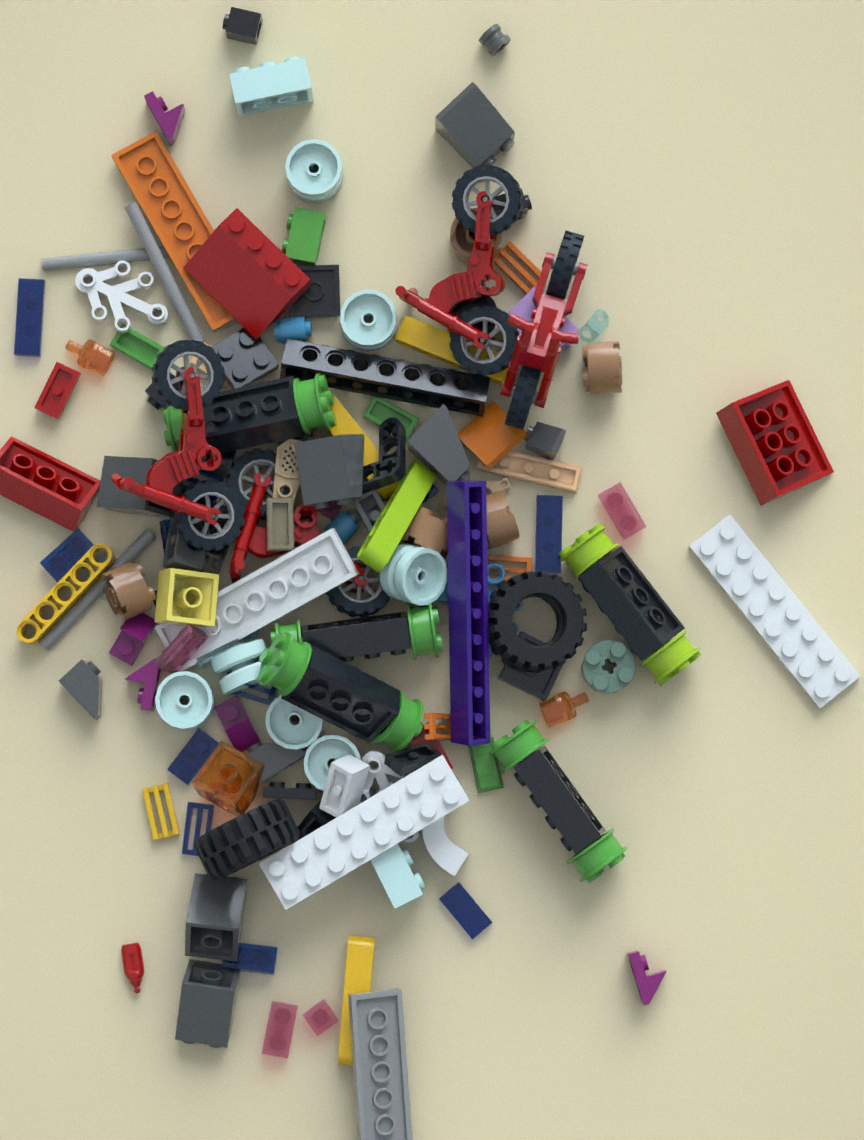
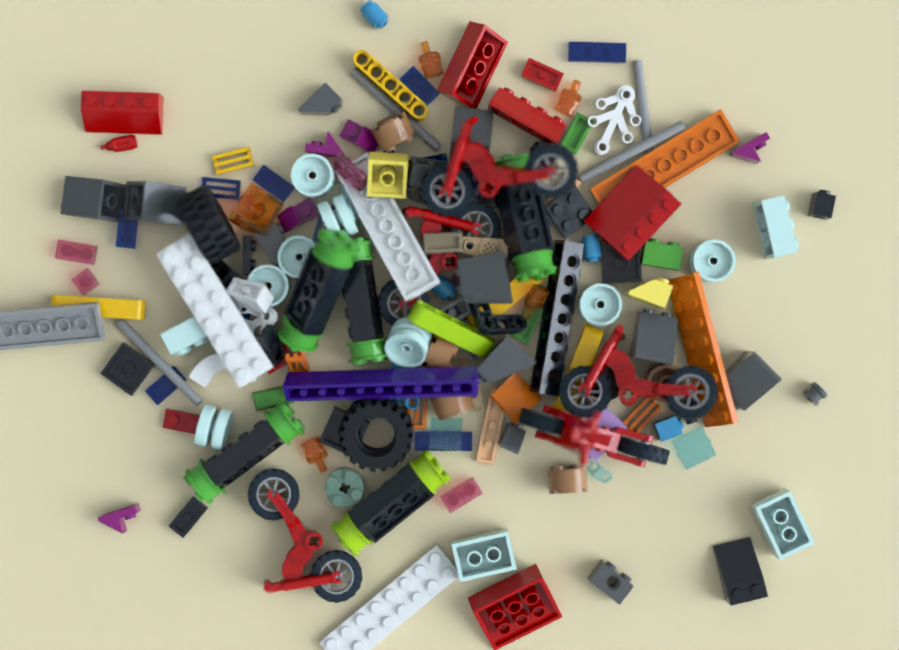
camera: 90 degrees right, 5 degrees up
(35, 540) = (430, 62): none -> clear orange piece
(90, 960) = (122, 112): none -> red slope
(114, 411) = (526, 117): none -> red slope
(354, 250) = (652, 292): none -> light yellow slope
(360, 406) = (534, 299): none -> clear orange piece
(414, 248) = (654, 337): none -> dark grey slope
(423, 186) = (701, 344): none -> orange plate
(433, 917) = (159, 362): none -> light grey piece
(442, 961) = (127, 369): none -> black plate
(515, 887) = (181, 421): none -> red plate
(523, 842) = (213, 427): none -> light aqua wheel
(536, 233) = (668, 427): none -> dark azure brick
(538, 529) = (446, 434): none -> clear light blue piece
(564, 200) = (694, 448): none -> clear light blue piece
(646, 882) = (188, 516): none -> black plate
(666, 85) = (782, 524): none -> light aqua brick
(692, 726) = (302, 551): none -> piece
(702, 481) = (483, 555): none -> light aqua brick
(730, 143) = (739, 571): none -> black slope
(752, 302) = (616, 591): none -> dark grey brick

